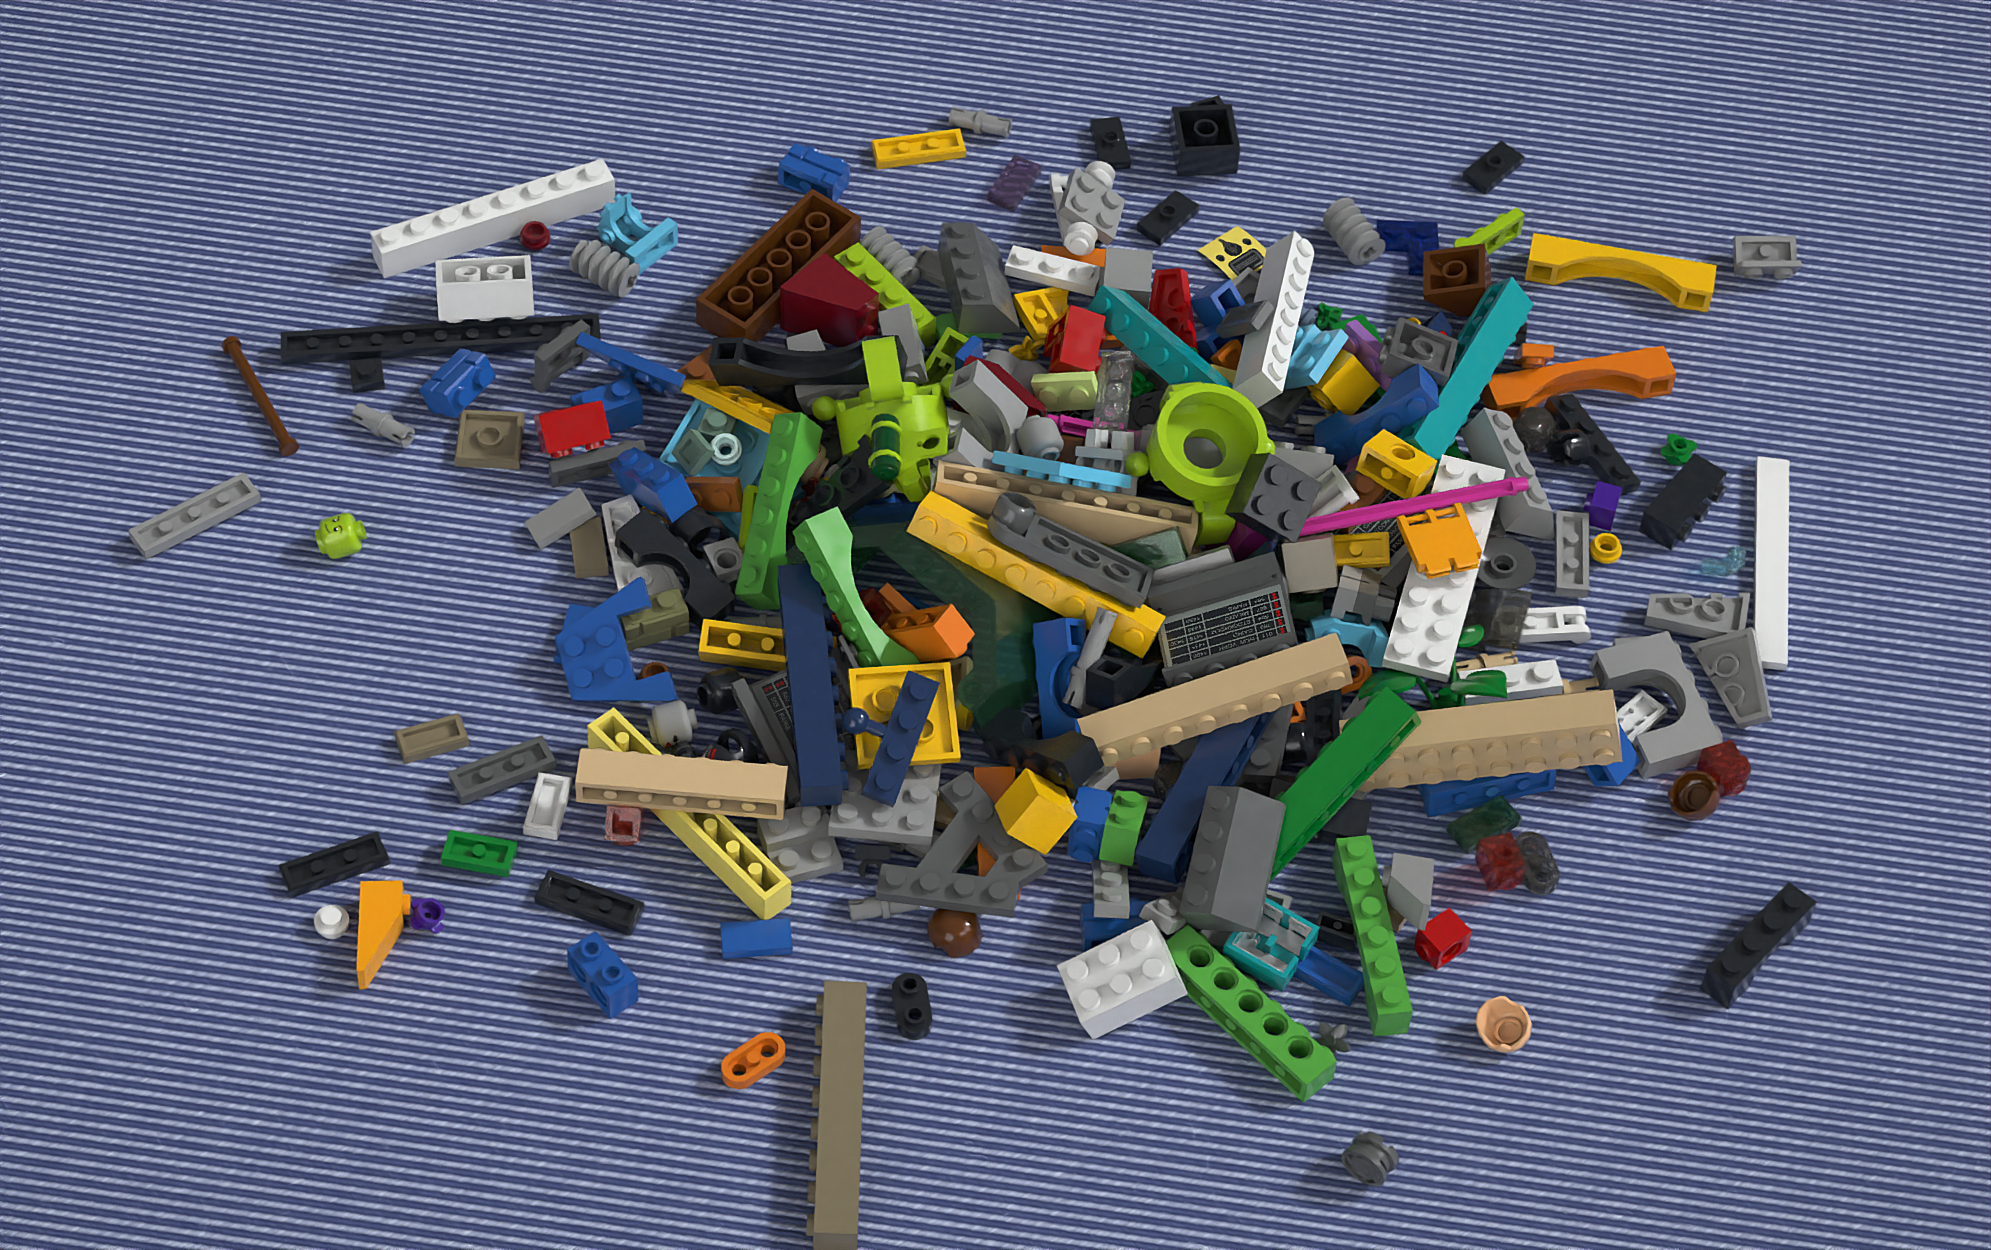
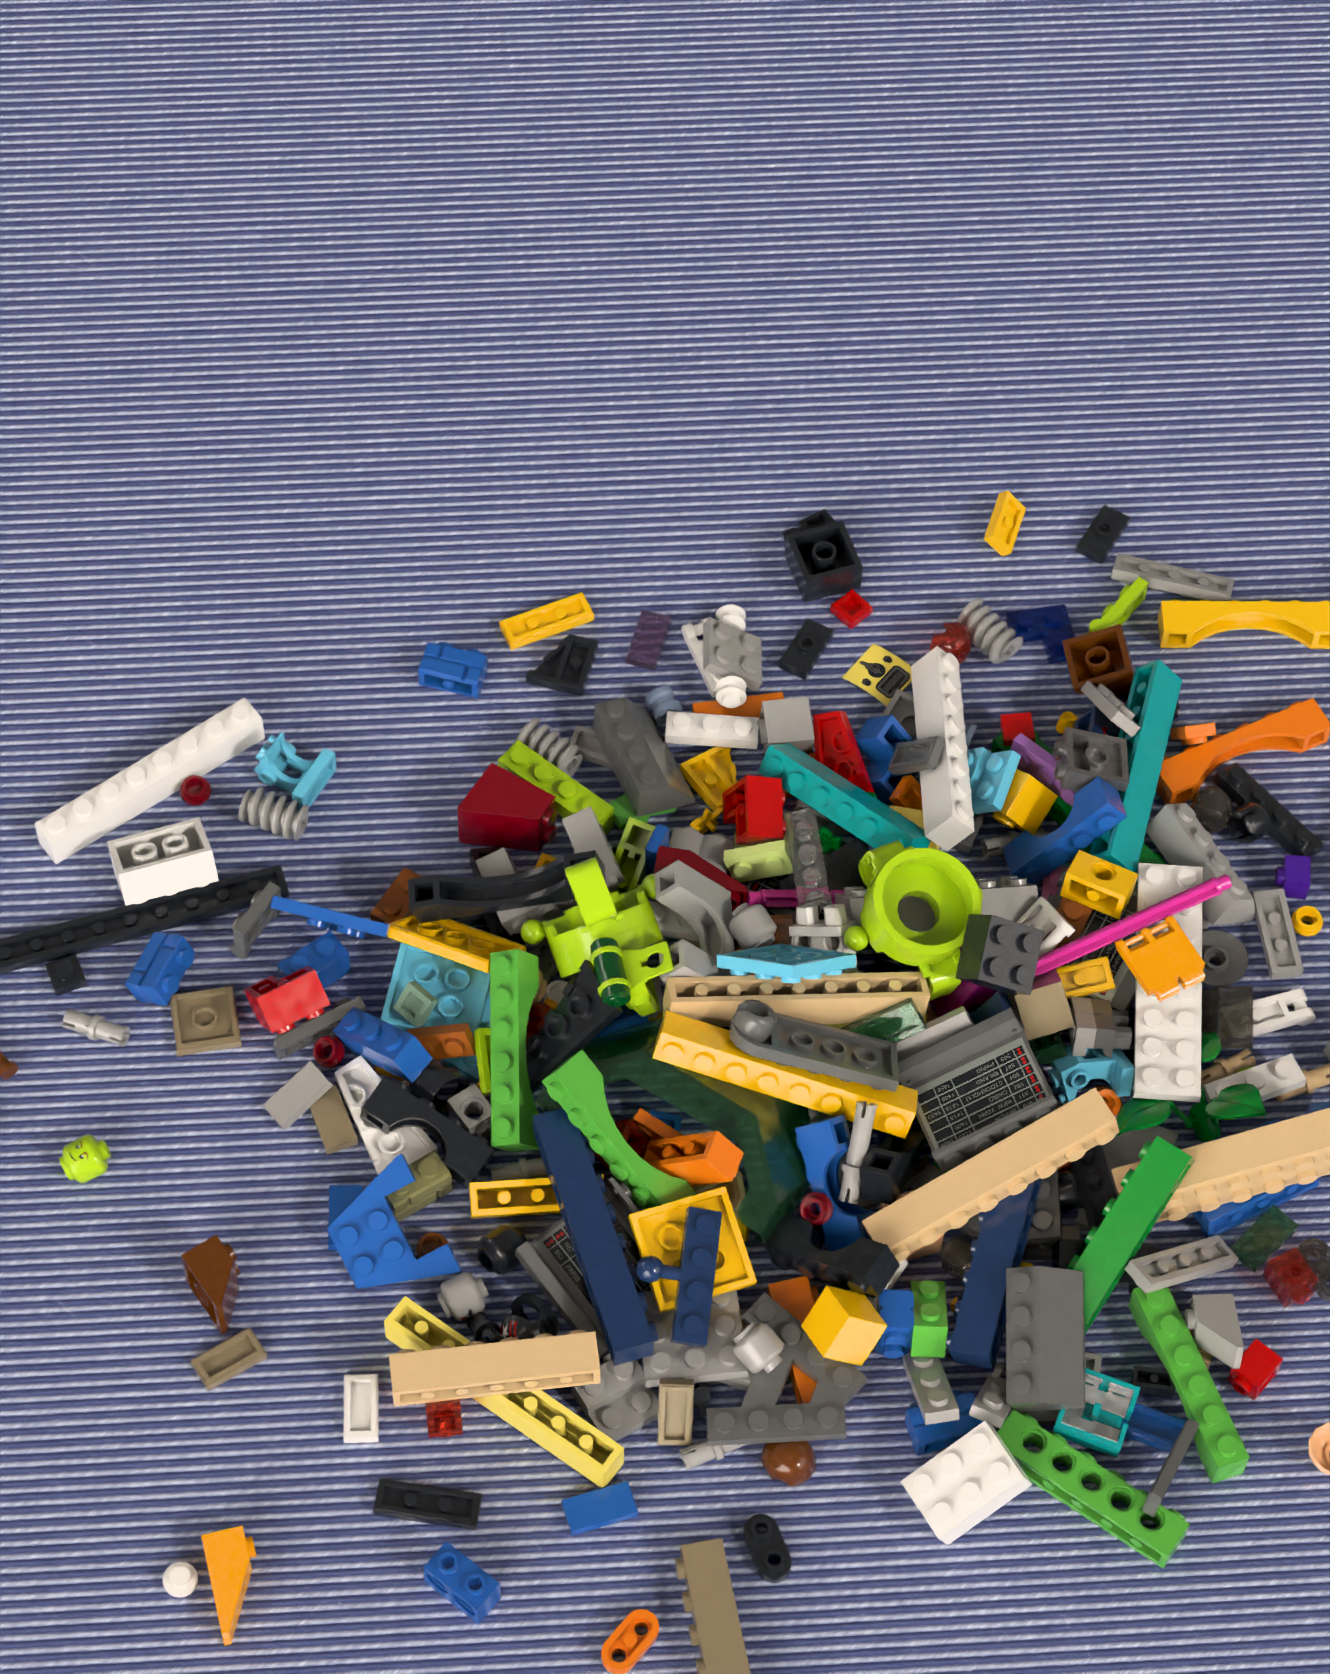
camera: 10 degrees left, 5 degrees up
(334, 864) = (166, 1516): black tile -> none
(433, 909) = (277, 1545): dark purple plate -> none
(434, 660) = (213, 1279): none -> reddish brown slope
(479, 853) = (307, 1475): green plate -> none
(501, 769) = (307, 1380): dark grey plate -> none
(601, 486) = (322, 1048): none -> dark red plate
(716, 423) = (430, 970): sand green plate -> none
(726, 440) = (446, 983): light aqua plate -> none
(748, 293) = (425, 812): reddish brown brick -> none
(851, 863) = (675, 1412): none -> tile
(926, 191) = (566, 666): none -> black wing
(945, 814) = (758, 1347): none -> light grey head
(980, 122) = (600, 581): light grey pin -> none
(1008, 235) = (661, 701): none -> sand blue wheel
(1030, 703) = (809, 1211): none -> dark red plate
(1110, 142) = (731, 578): black plate -> none
(1222, 190) = (851, 609): none -> red tile
(1317, 231) = (954, 641): none -> clear red hair
(1328, 315) = (985, 725): green plant -> none
(1330, 1004) = (1170, 1467): none -> dark grey tile
(1333, 1037) = (1176, 1498): dark grey plant -> none
(1361, 313) = (1014, 724): none -> red tile
(1369, 1159) = (1244, 1619): dark grey wheel -> none
(1391, 825) = (1181, 1264): none -> light grey plate
(1396, 139) = (1004, 523): none -> yellow plate
(1454, 313) = (1111, 707): none -> light grey plate
(1552, 218) = (1172, 578): none -> light grey plate

